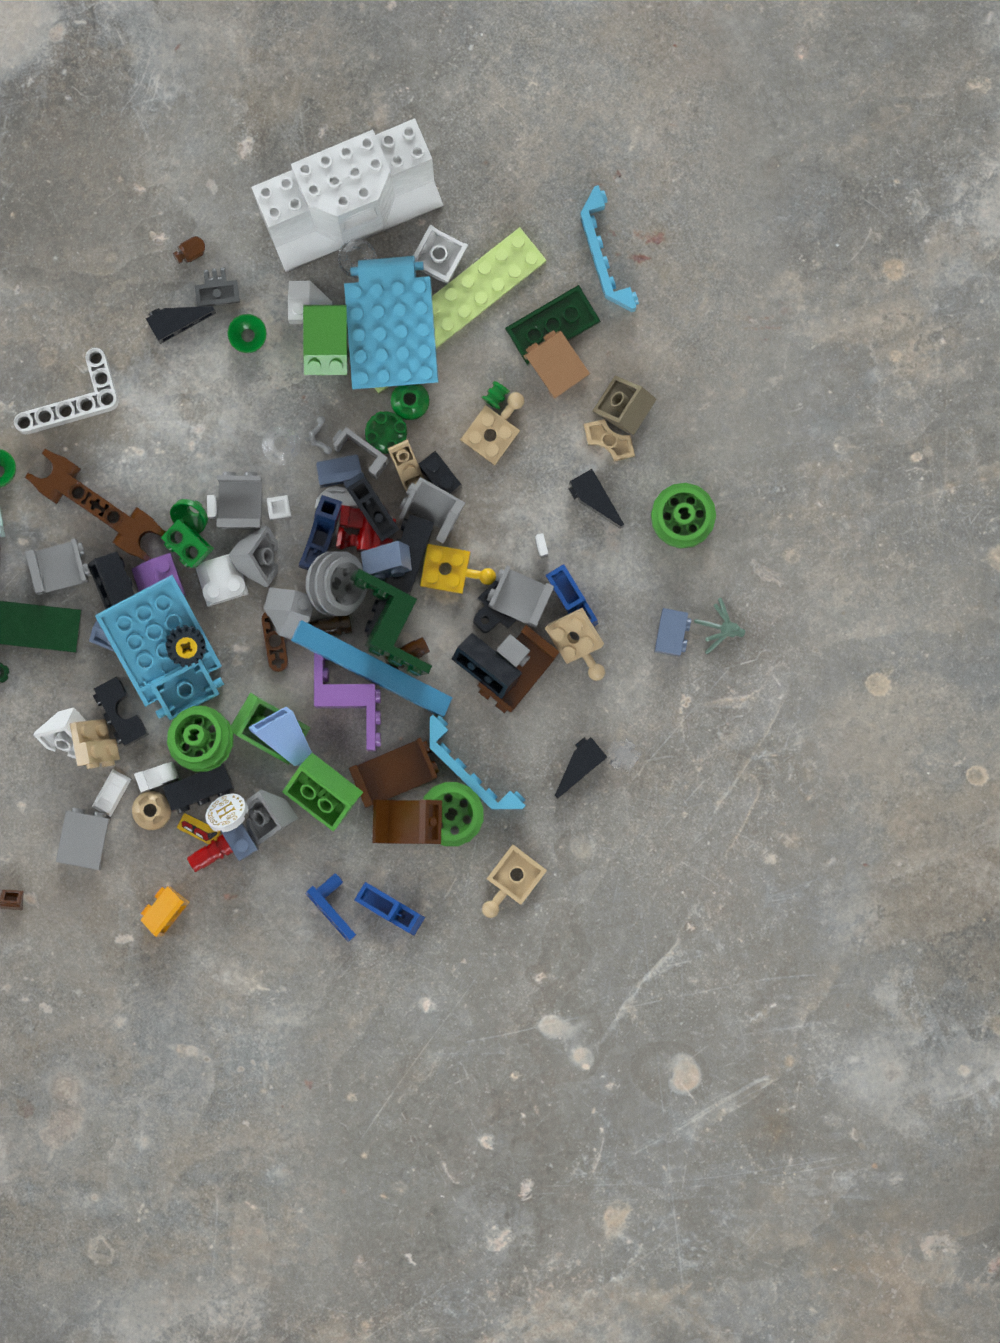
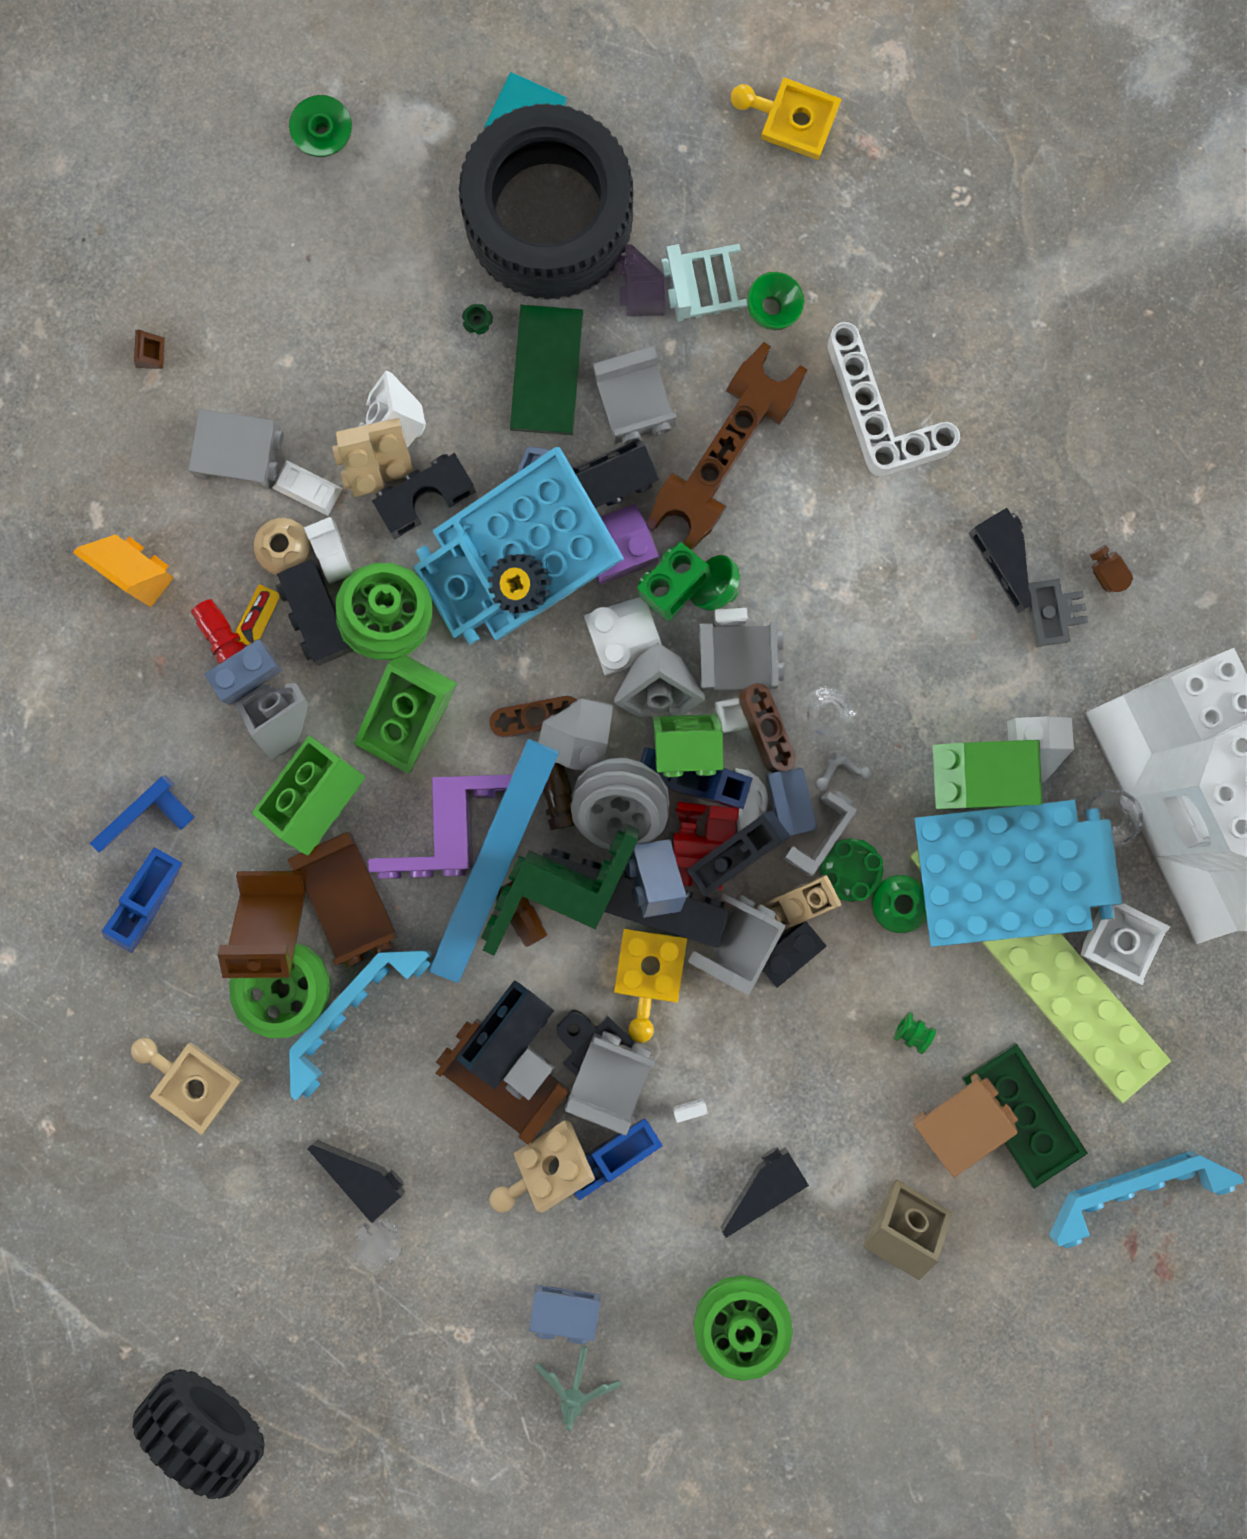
camera: 85 degrees right, 0 degrees up
(226, 812) = (272, 653): white tile -> none
(243, 323) = (1005, 652): green piece -> none
(283, 735) = (389, 732): light blue slope -> none
(284, 493) = (772, 715): none -> reddish brown beam
(297, 536) = (688, 744): none -> bright green slope
(488, 420) = (876, 1026): tan plate -> none
(601, 435) = (861, 1193): tan tile -> none
(736, 868) = (198, 1434): none -> black tyre

